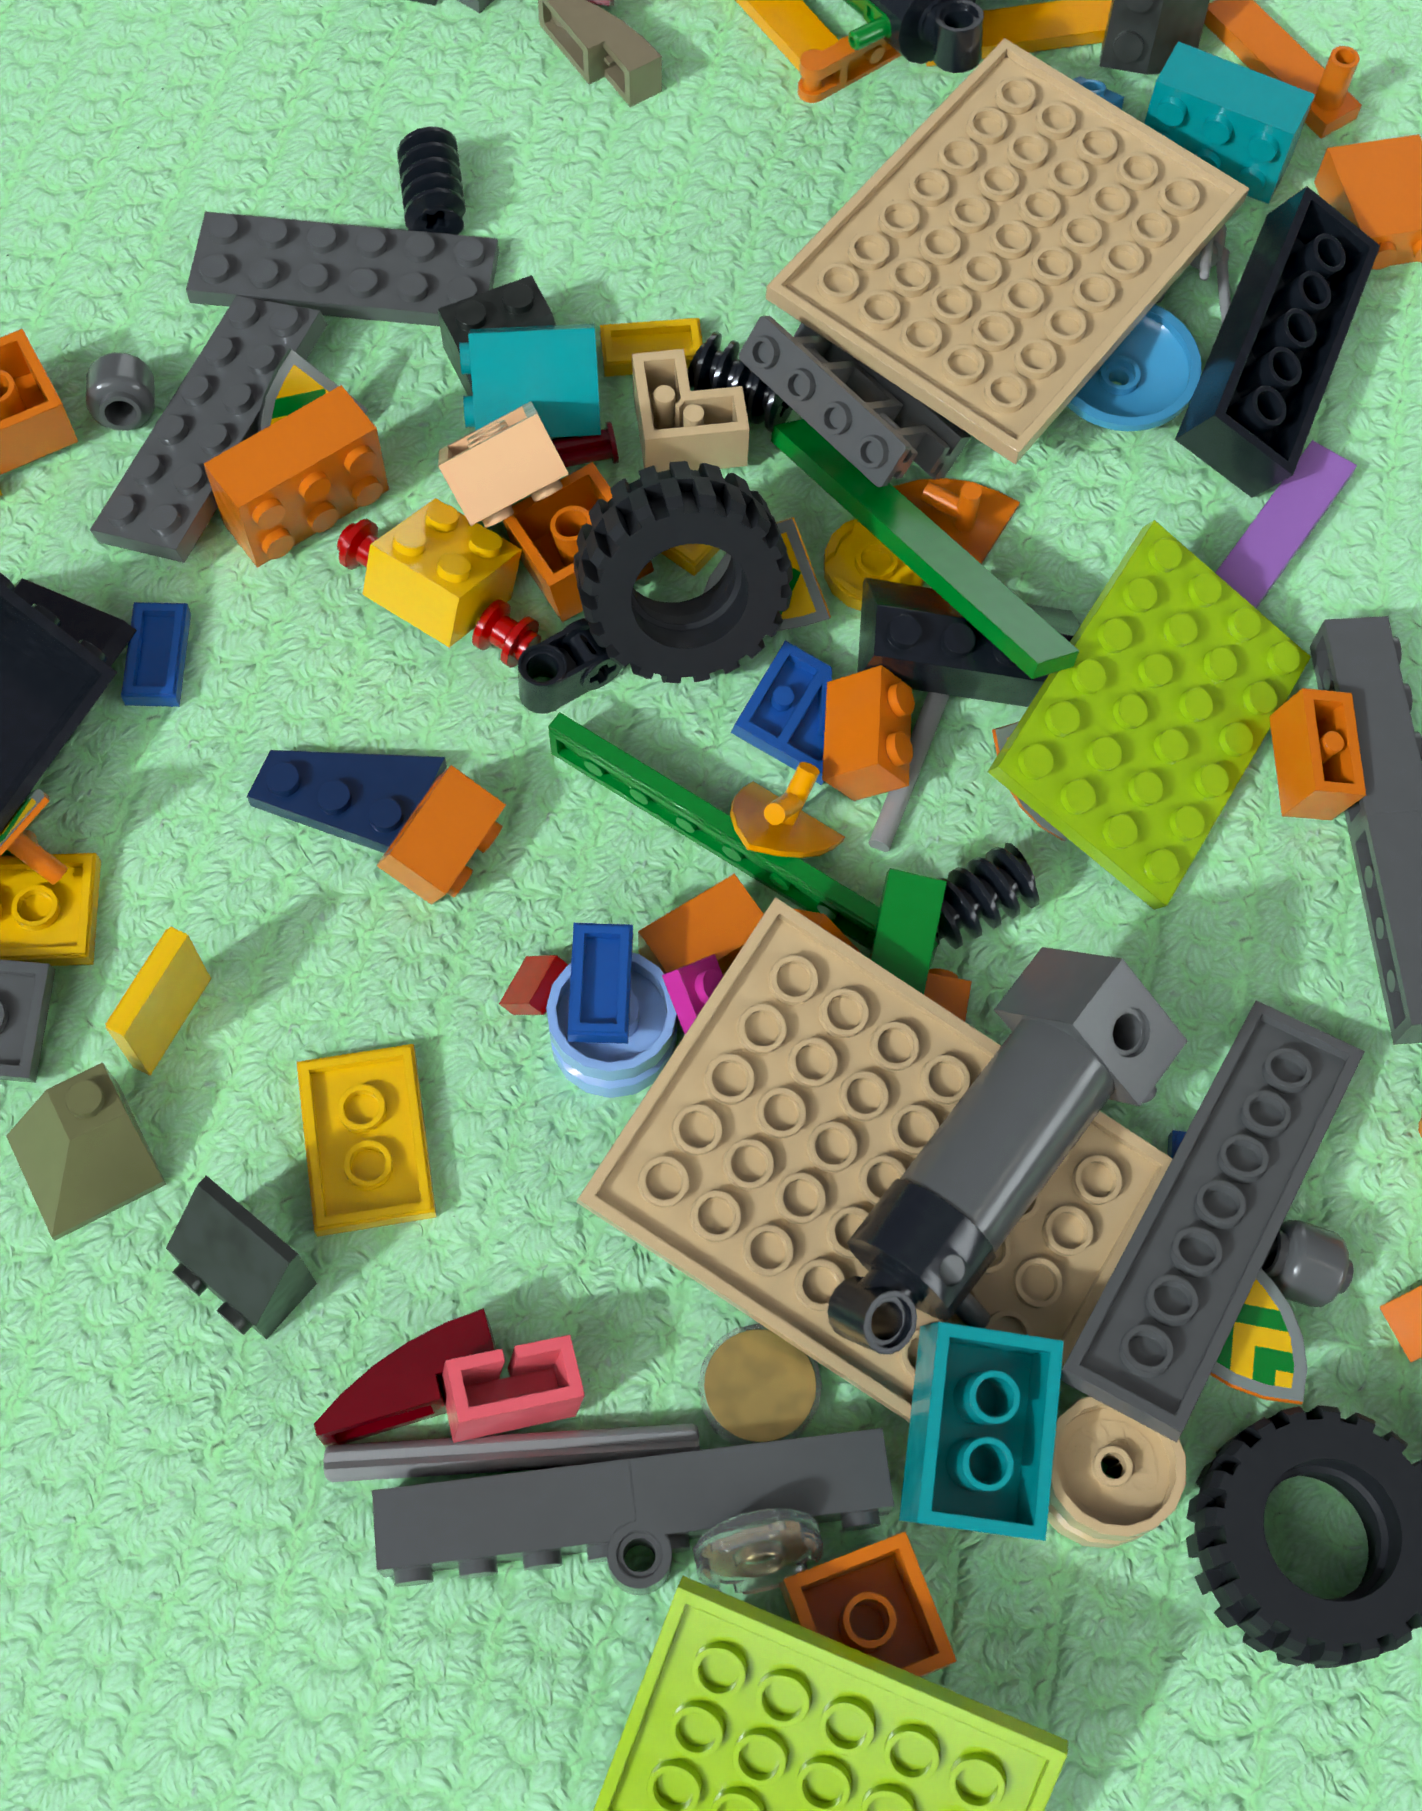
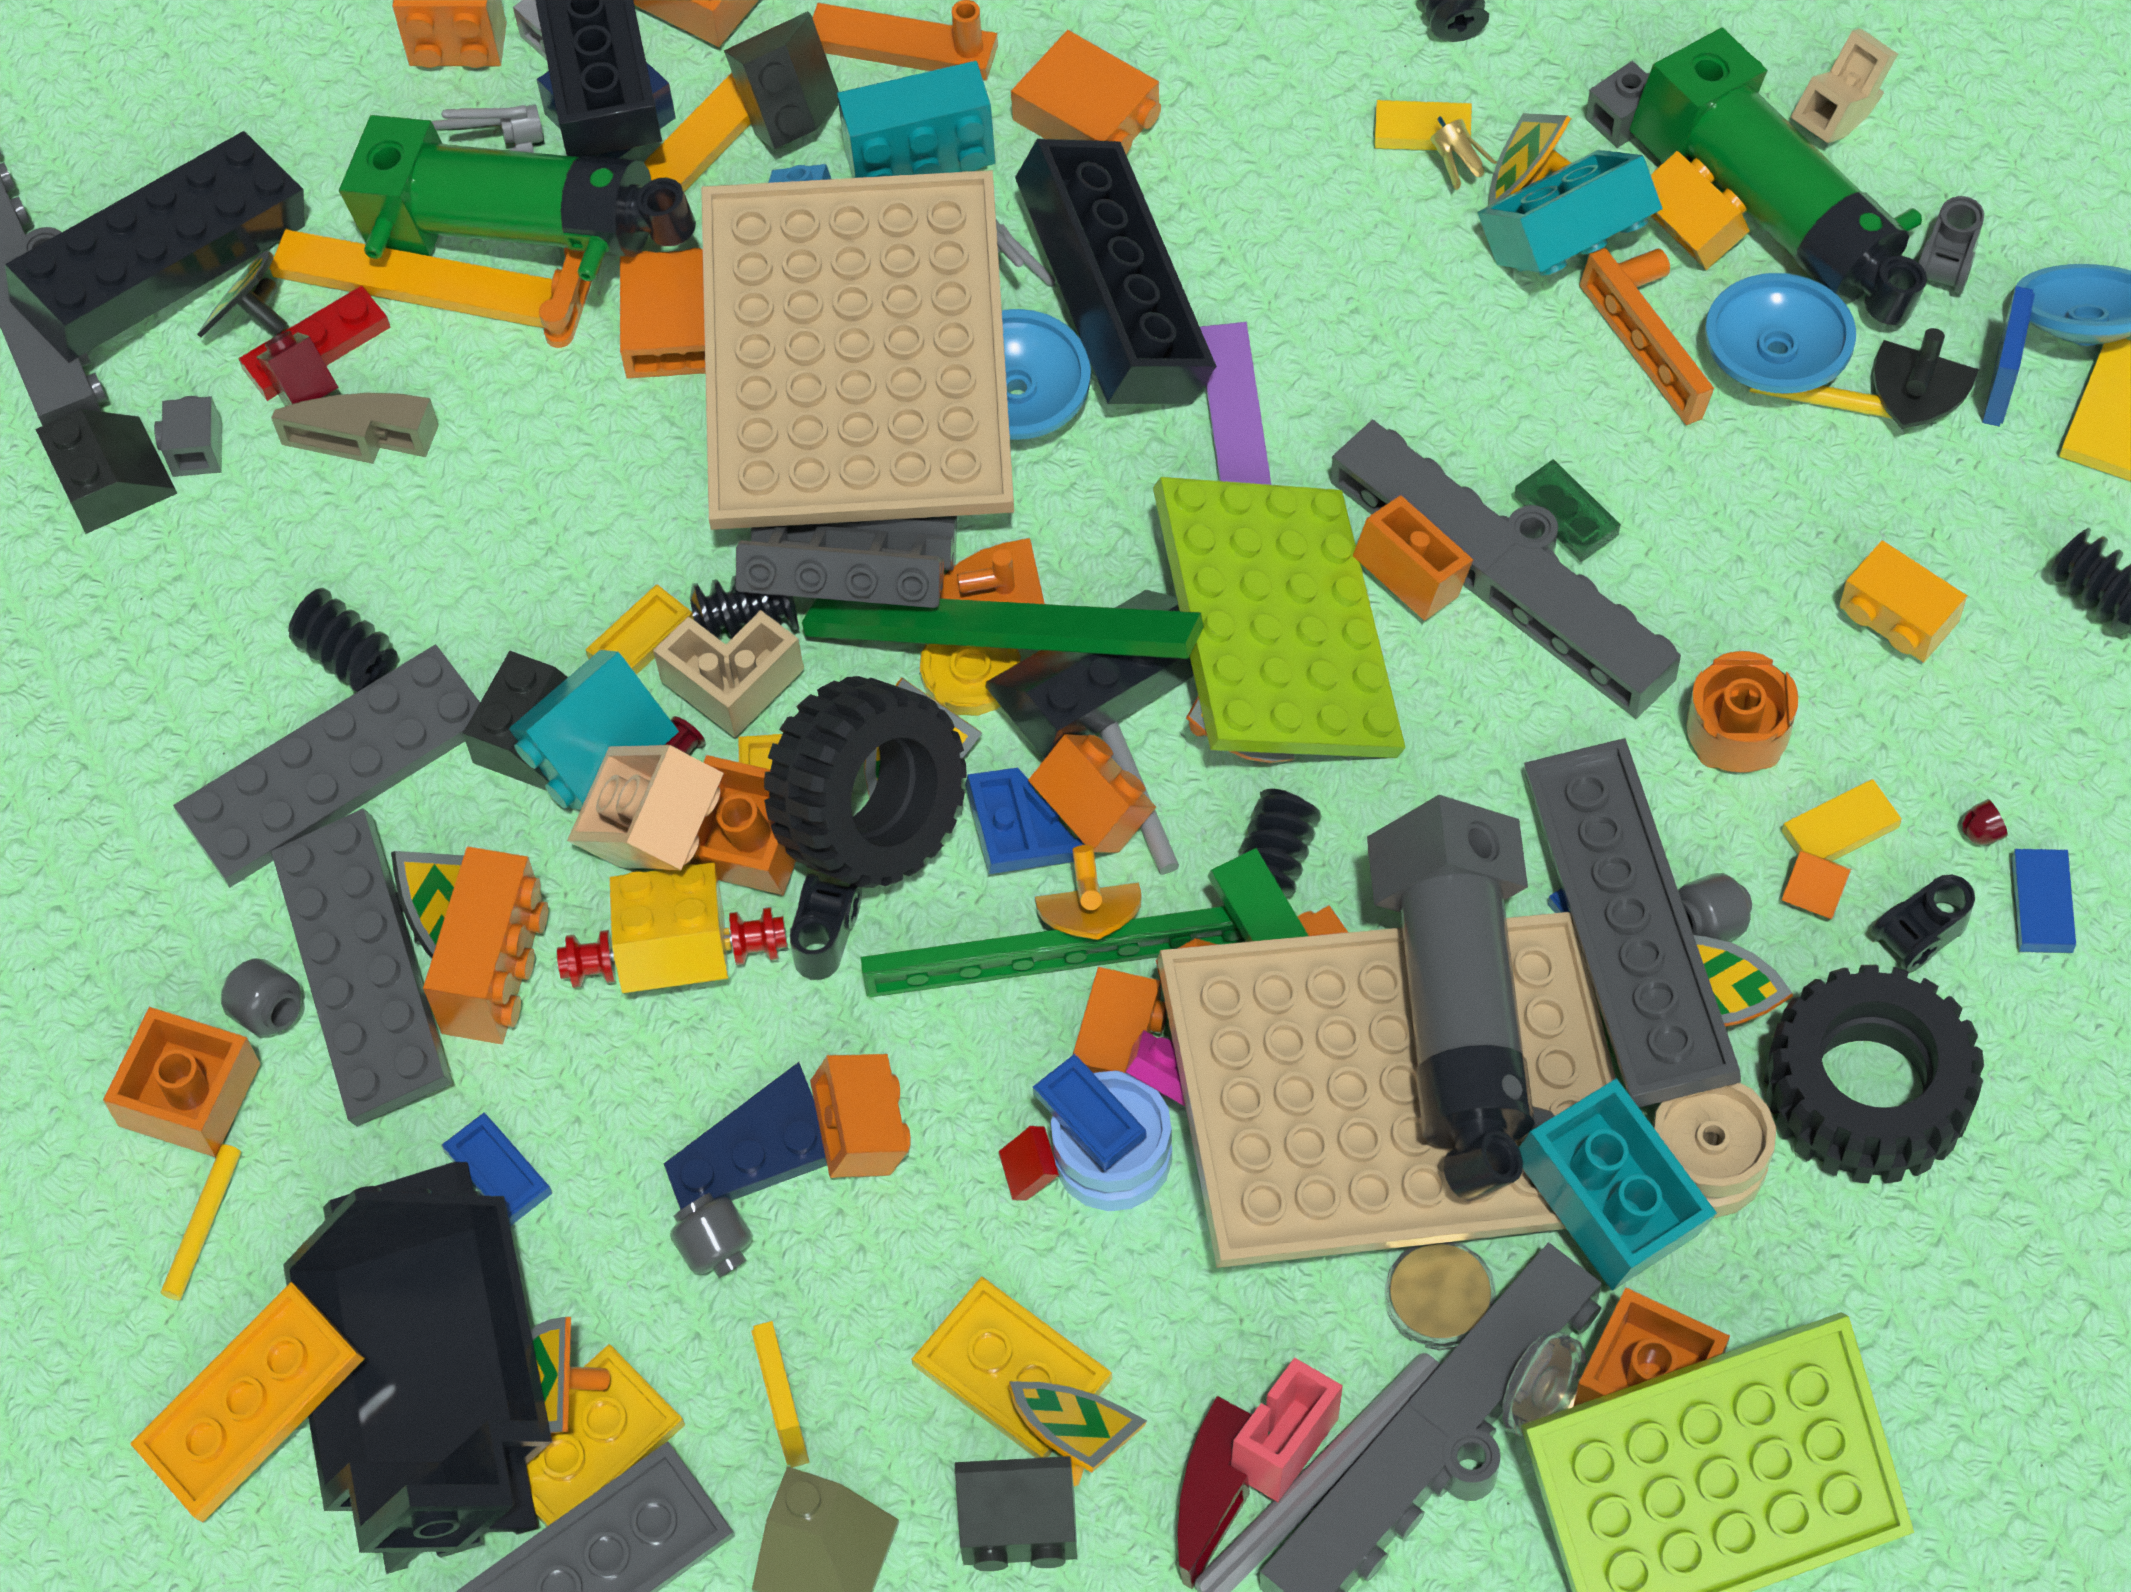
camera: 35 degrees left, 5 degrees down
(245, 834) = (711, 1235): none -> dark grey head
(352, 1227) = (1074, 1422): none -> shield
(886, 116) = (662, 313): none -> orange brick

